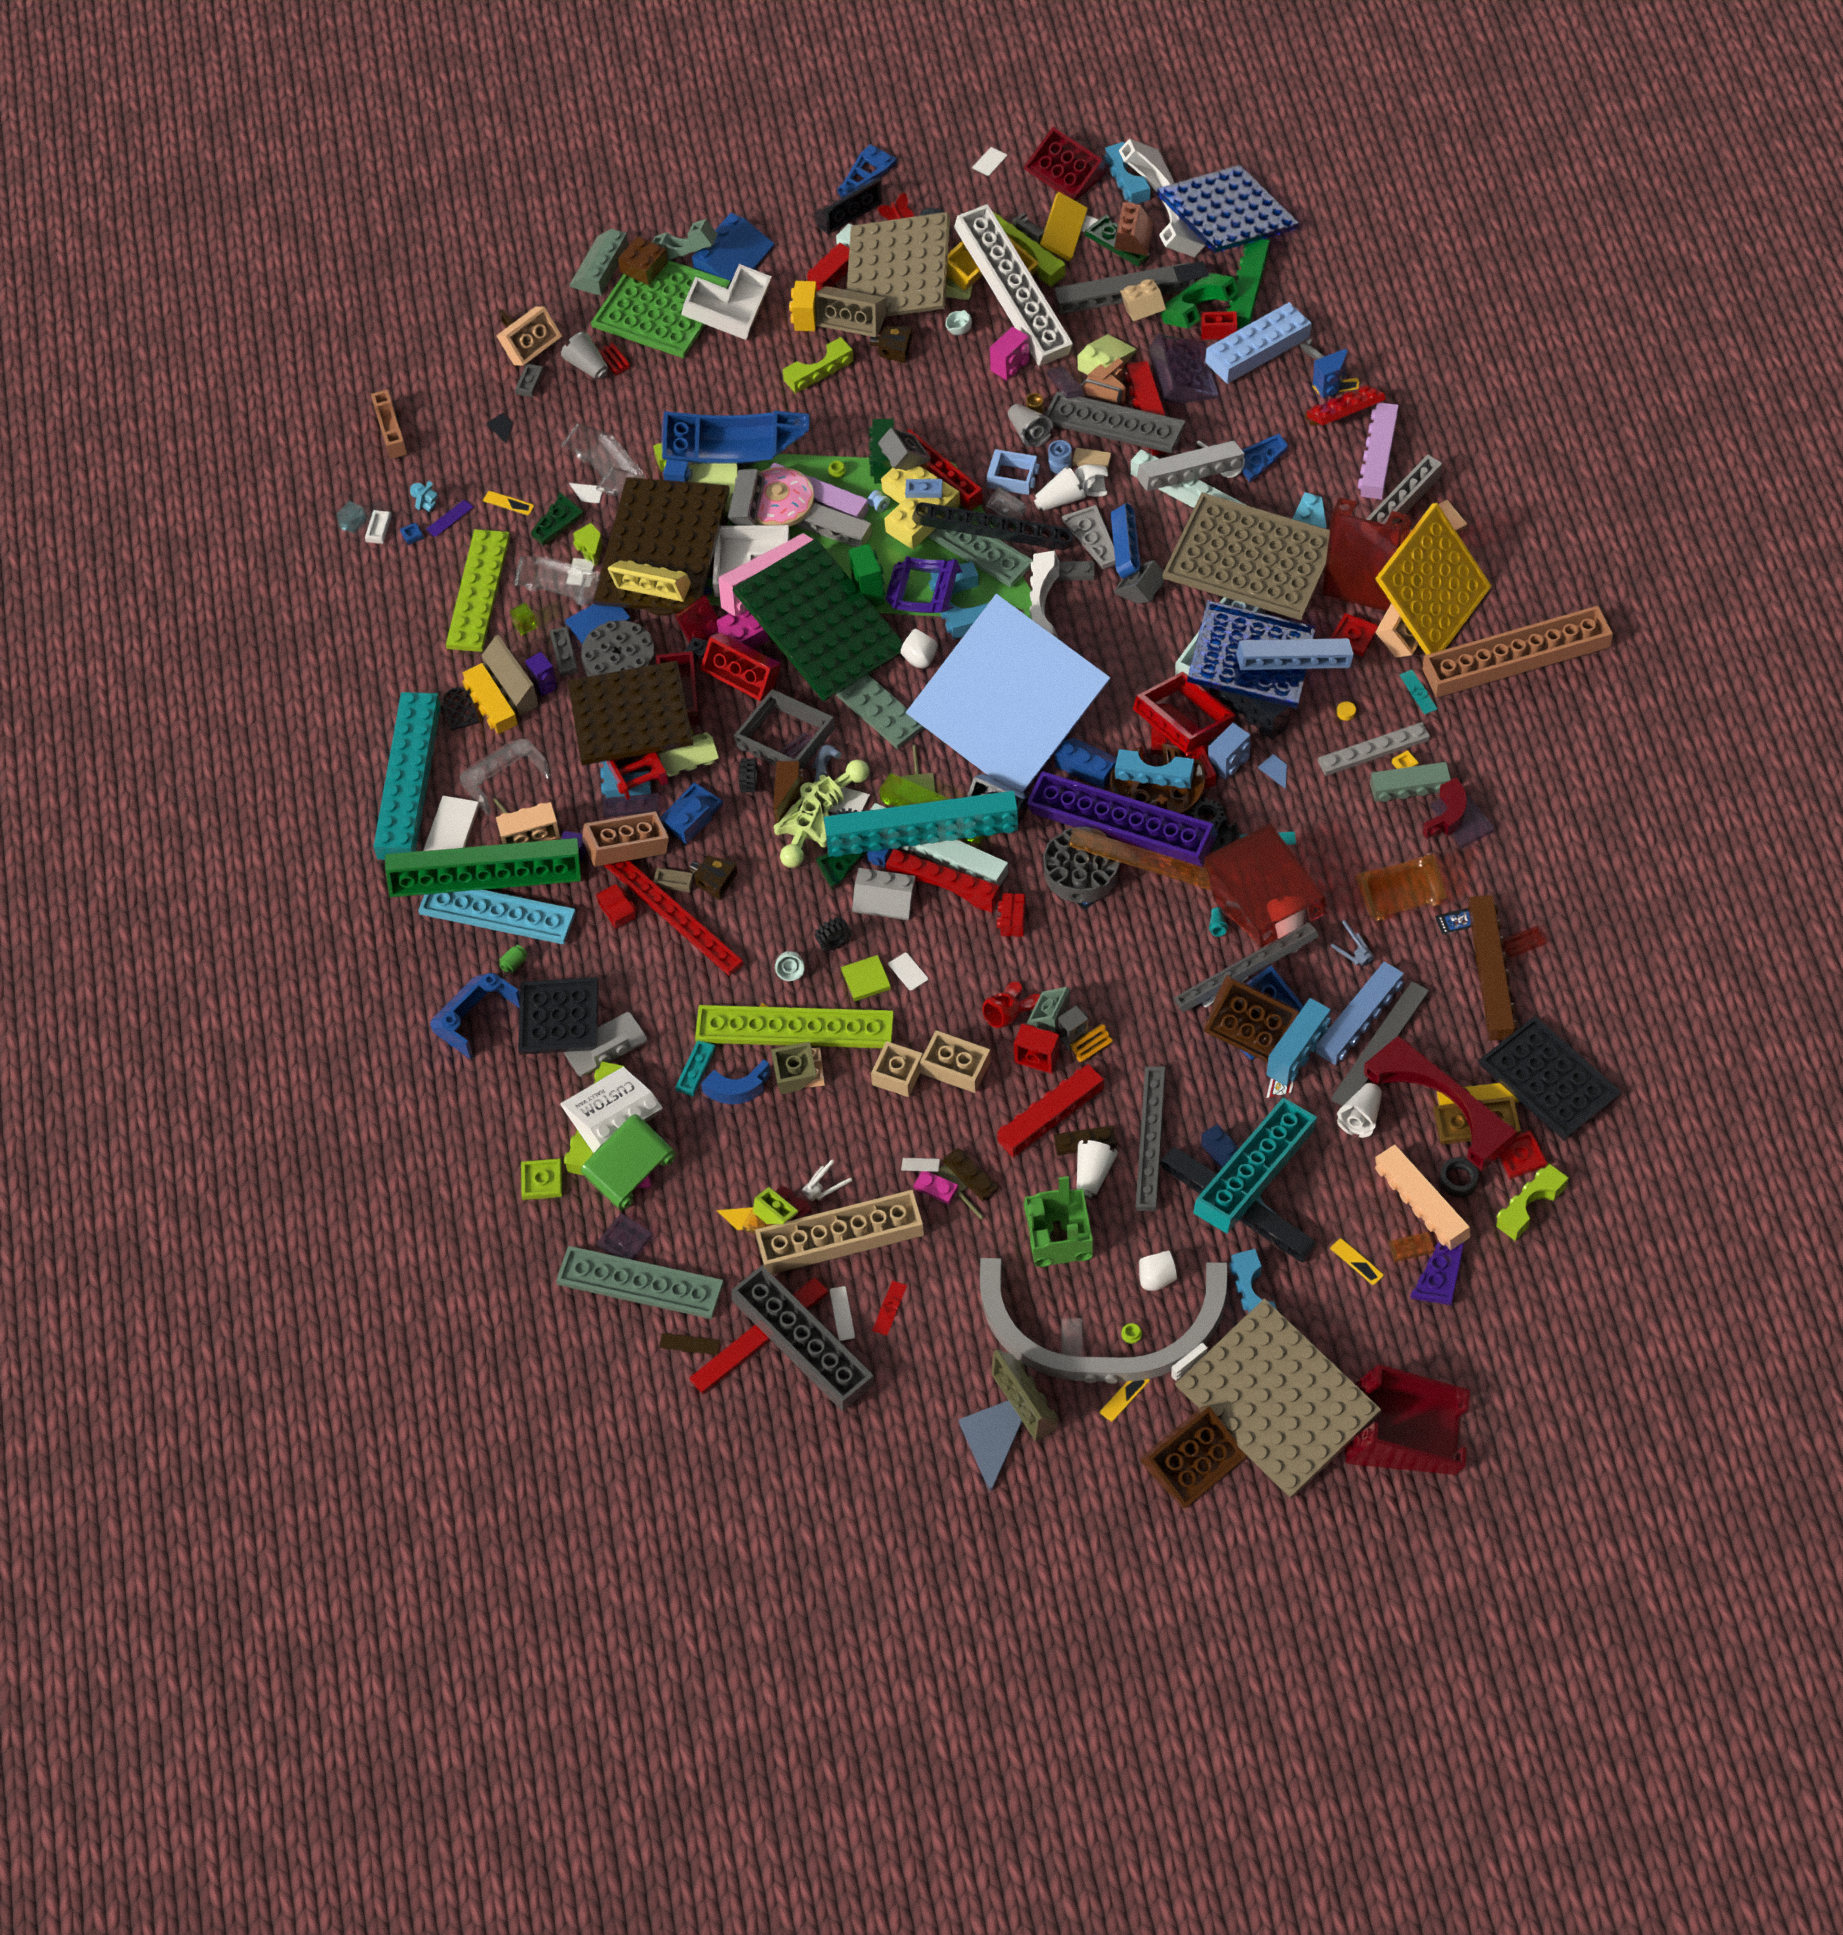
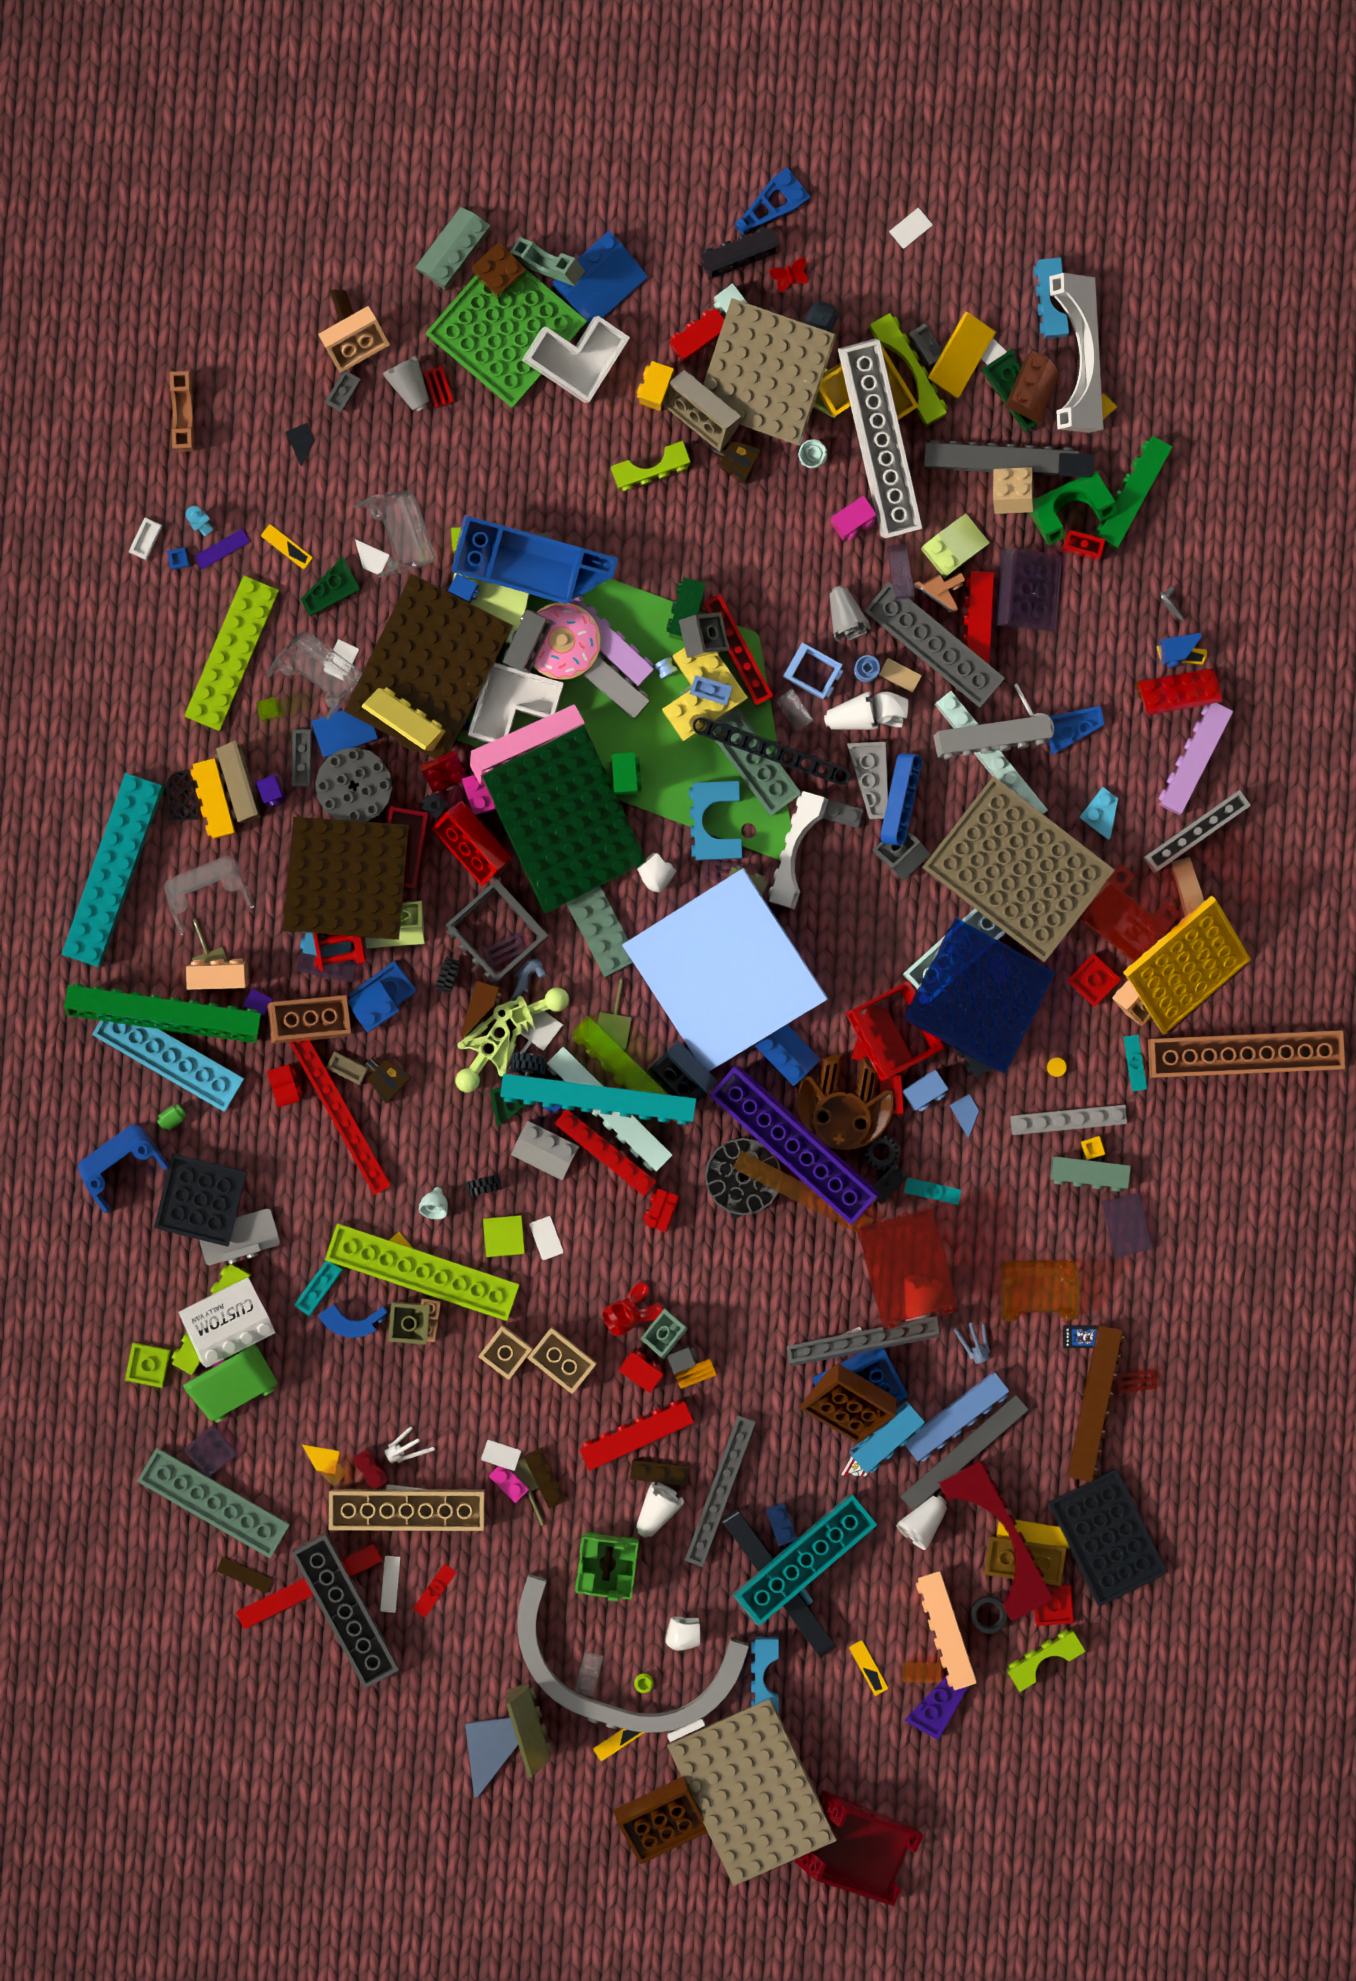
camera: 10 degrees right, 30 degrees up
(351, 517) = (118, 522): clear light blue brick -> none
(452, 824) = (142, 945): white tile -> none
(589, 542) = (359, 632): lime slope -> none
(773, 1208) = (352, 1477): lime slope -> none
(836, 469) = (634, 610): lime plate -> none
(942, 594) = (699, 814): dark purple wedge -> none
(1035, 402) = (861, 586): pearl gold wheel -> none
(1065, 165) = (989, 266): dark red slope -> none
(1176, 773) = (865, 1107): dark azure arch -> none
(1218, 924) = (854, 1275): teal cone -> none
(1227, 208) = (1141, 390): clear blue plate -> none
(1258, 342) = (1117, 580): light blue brick -> none
(1294, 654) = (1020, 1014): medium blue brick -> none
(1453, 516) = (1238, 861): tan tile -> none
(1455, 799) = (1124, 1217): dark red arch -> none

